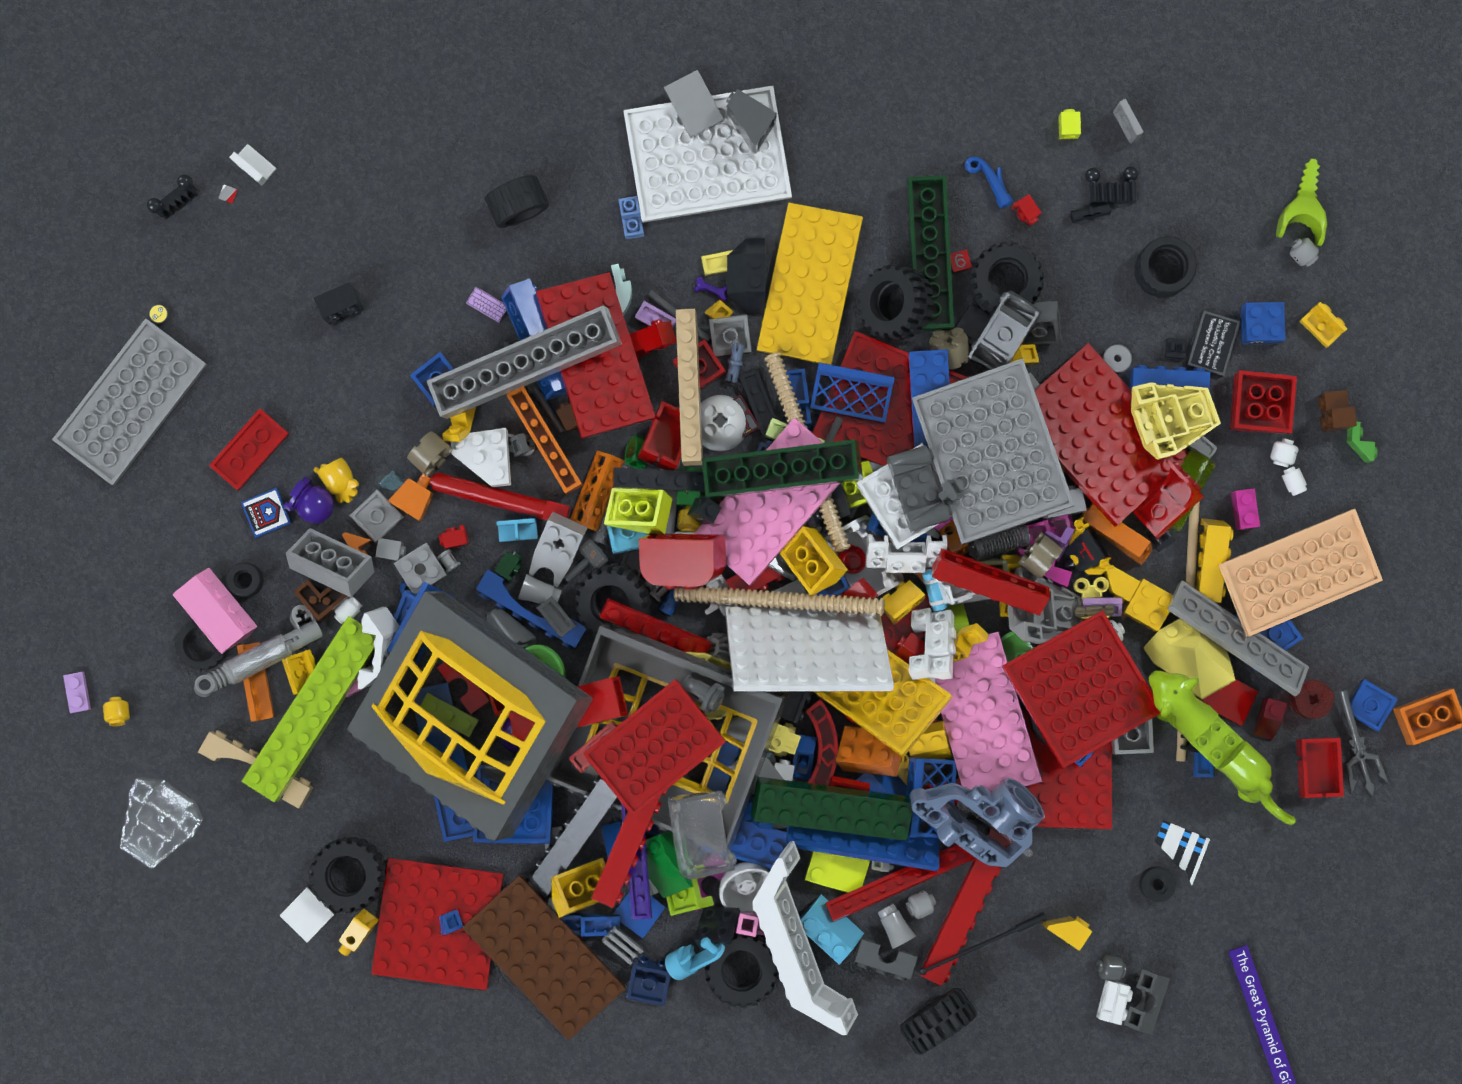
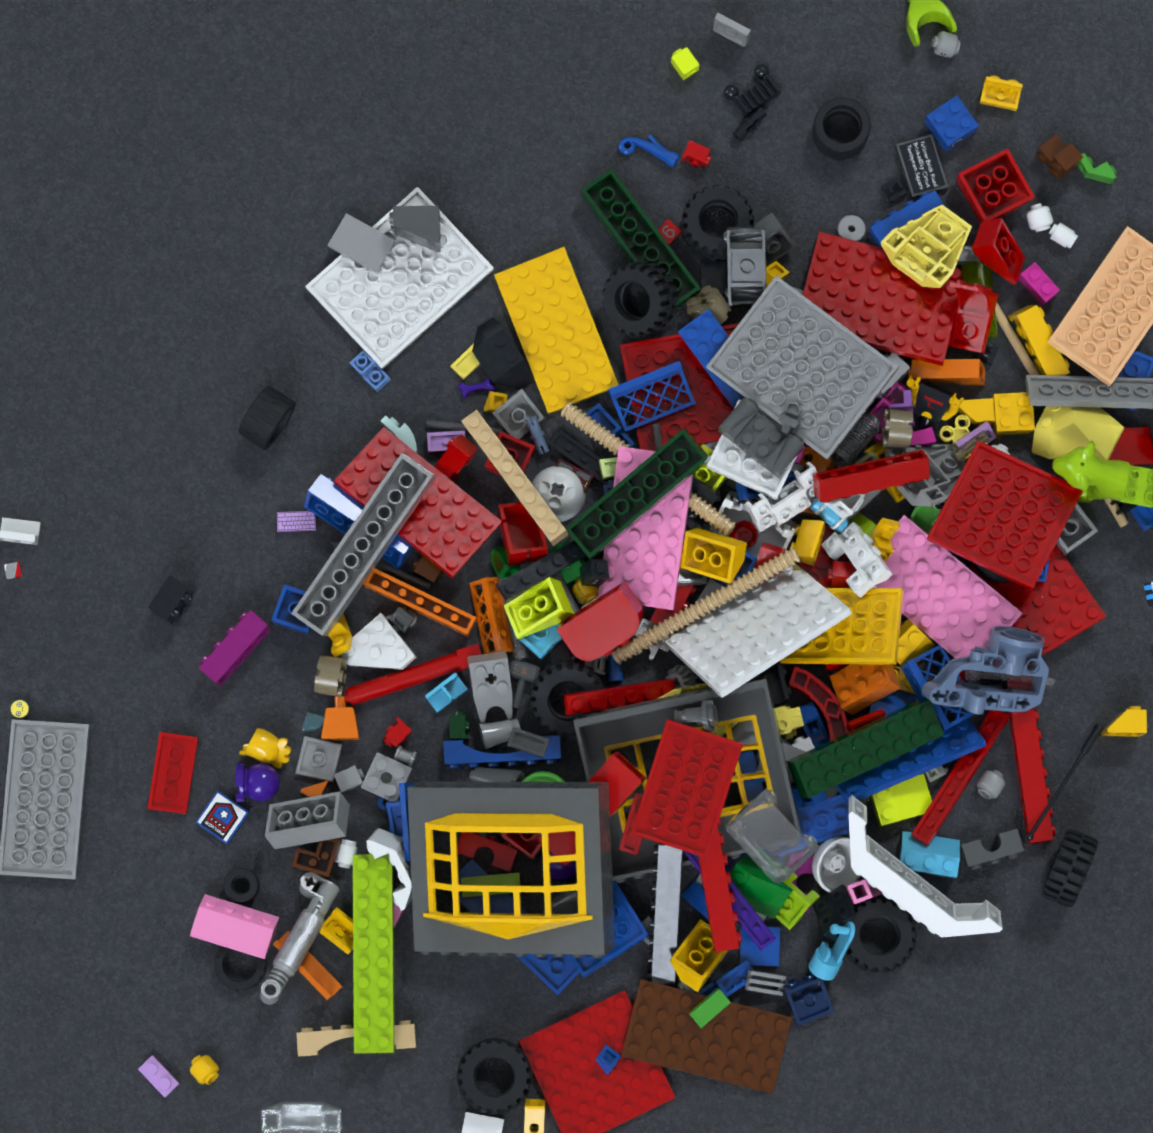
camera: 35 degrees left, 5 degrees down
(365, 378) = (234, 648): none -> magenta brick
(560, 936) = (709, 1007): none -> bright green slope
(895, 926) = (981, 815): light grey plant -> none
(1230, 458) = (998, 249): none -> red slope

